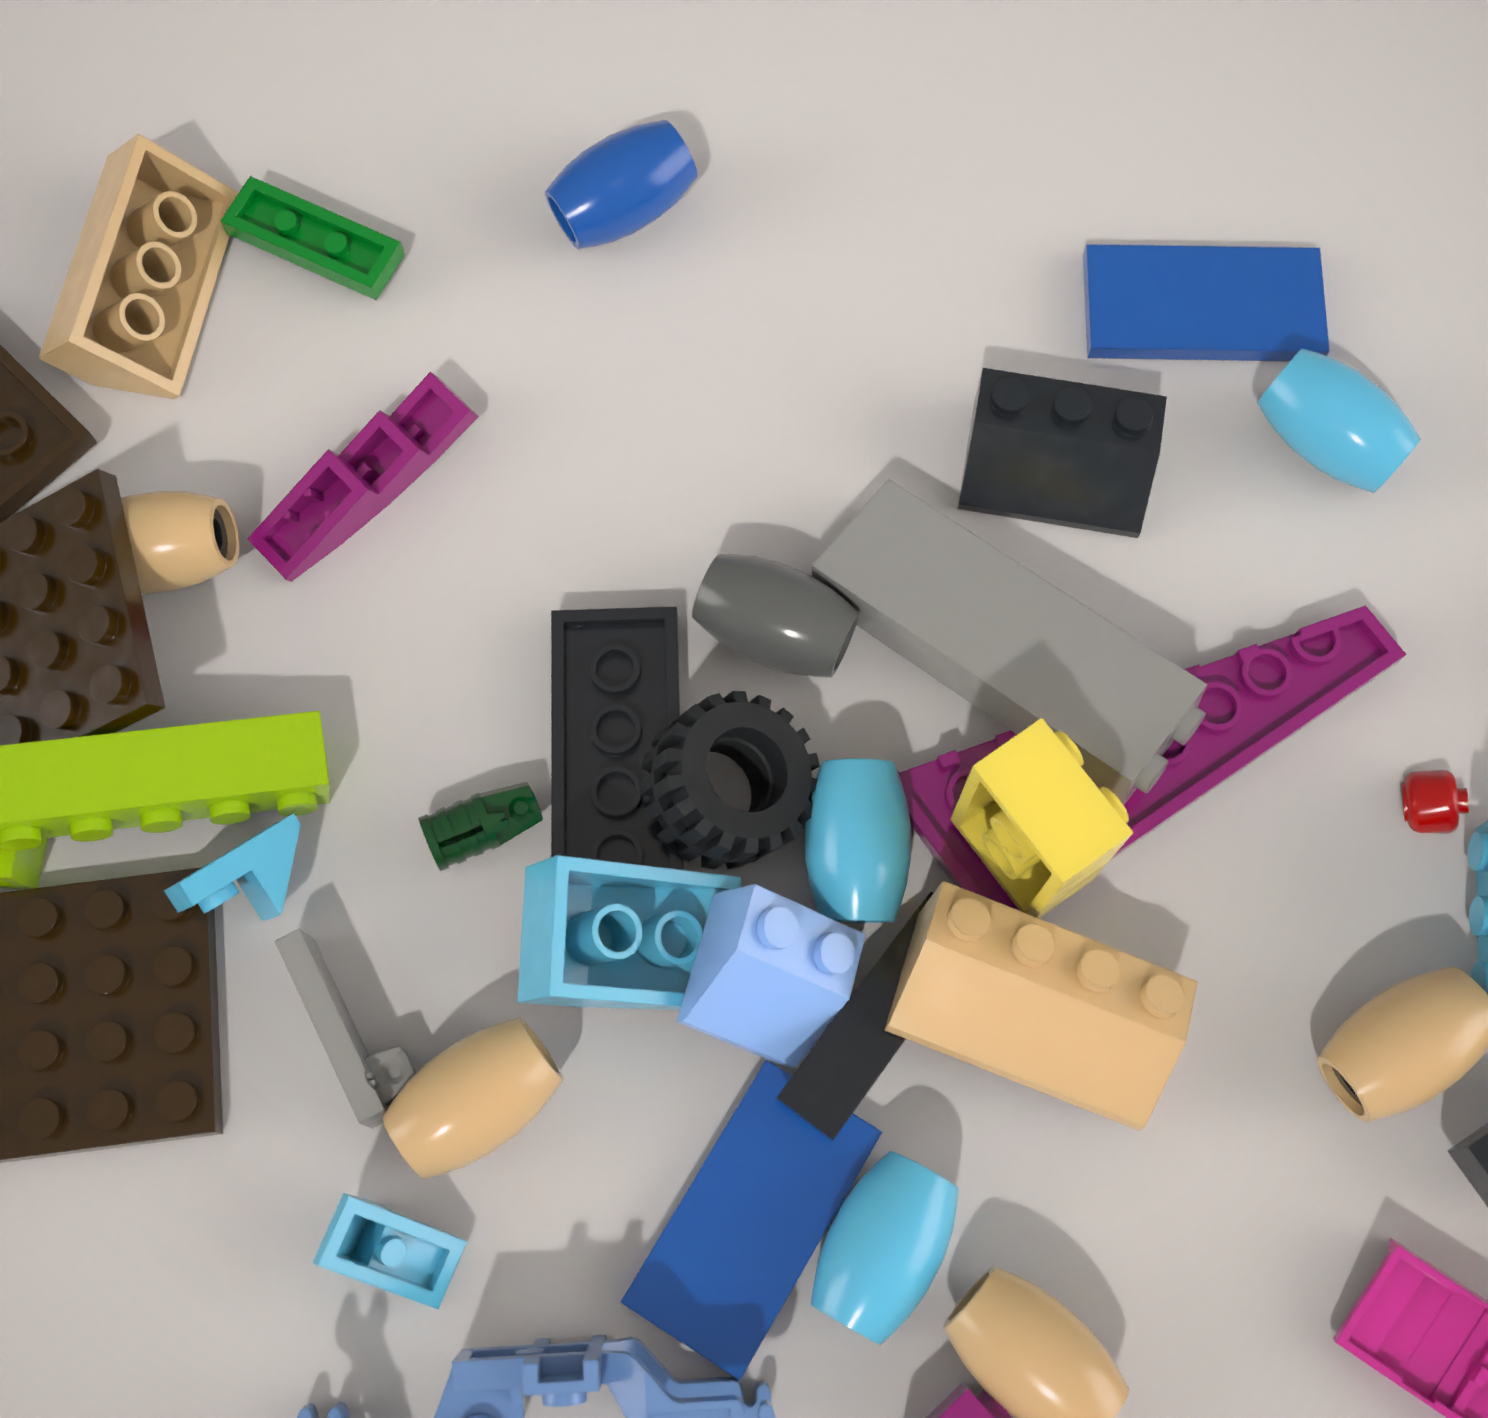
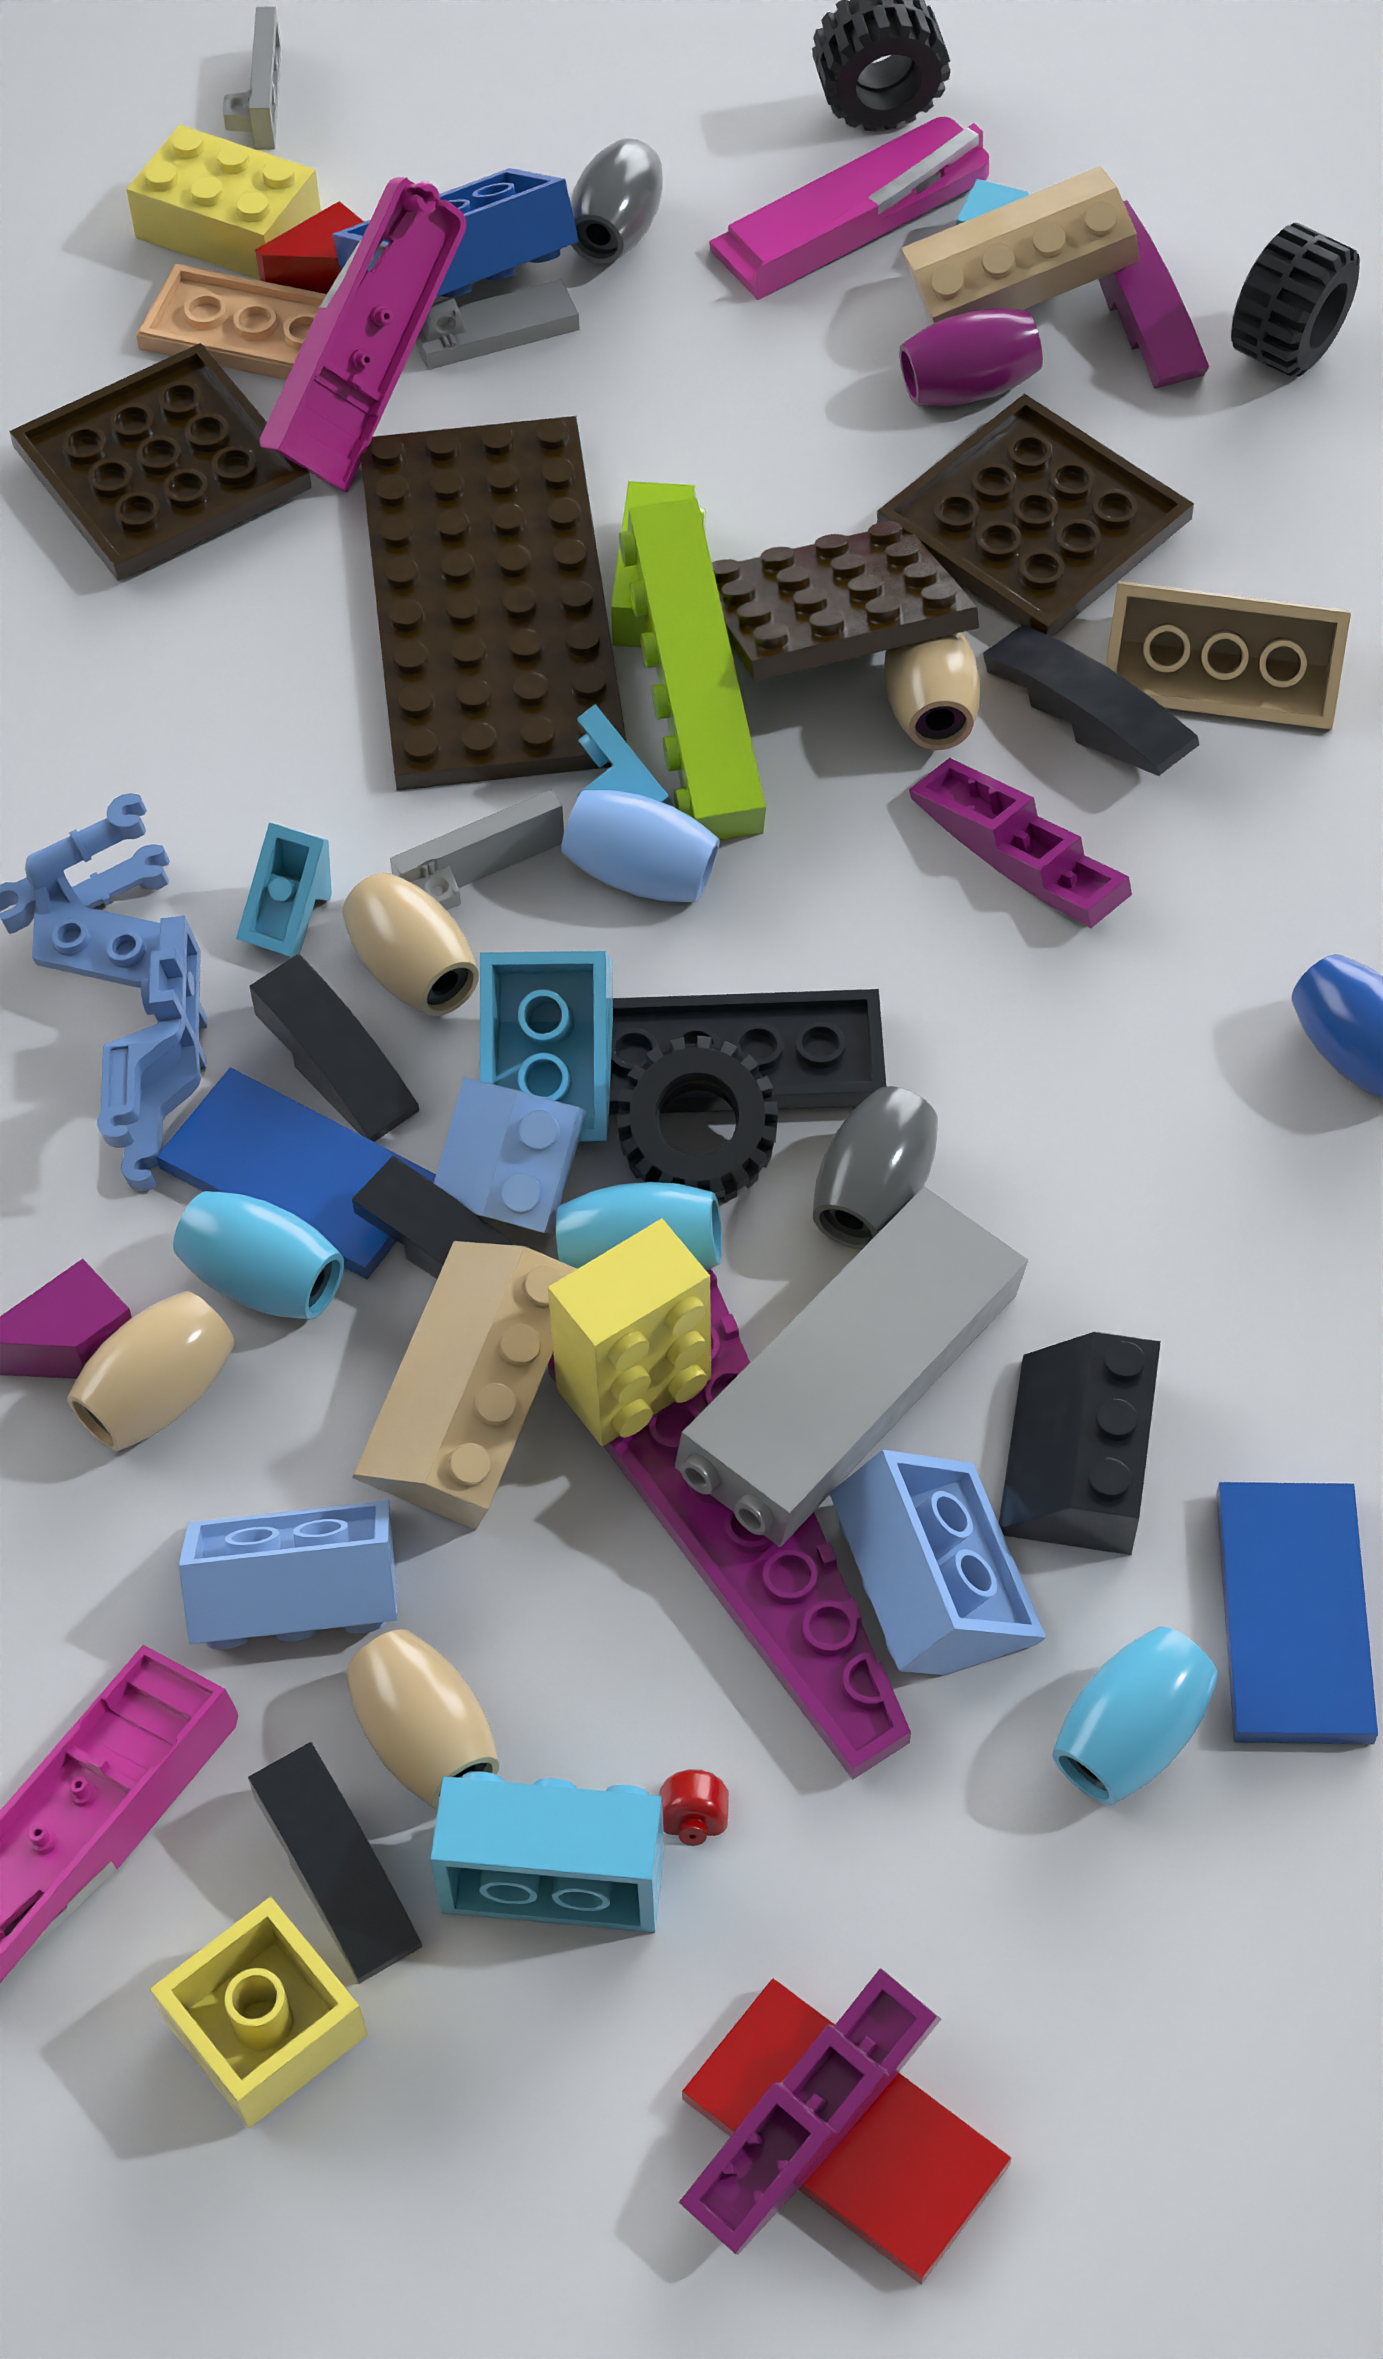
camera: 90 degrees right, 15 degrees down
(192, 393) = (1097, 701): none -> black slope
(313, 237) = (1281, 784): green plate -> none
(353, 847) = (640, 845): none -> light blue piece
(479, 823) = (665, 943): dark green hinge -> none
(603, 1182) = (332, 1048): none -> black slope
(1200, 578) = (934, 1563): none -> light blue slope
(1245, 1192) = (289, 1574): none -> light blue slope

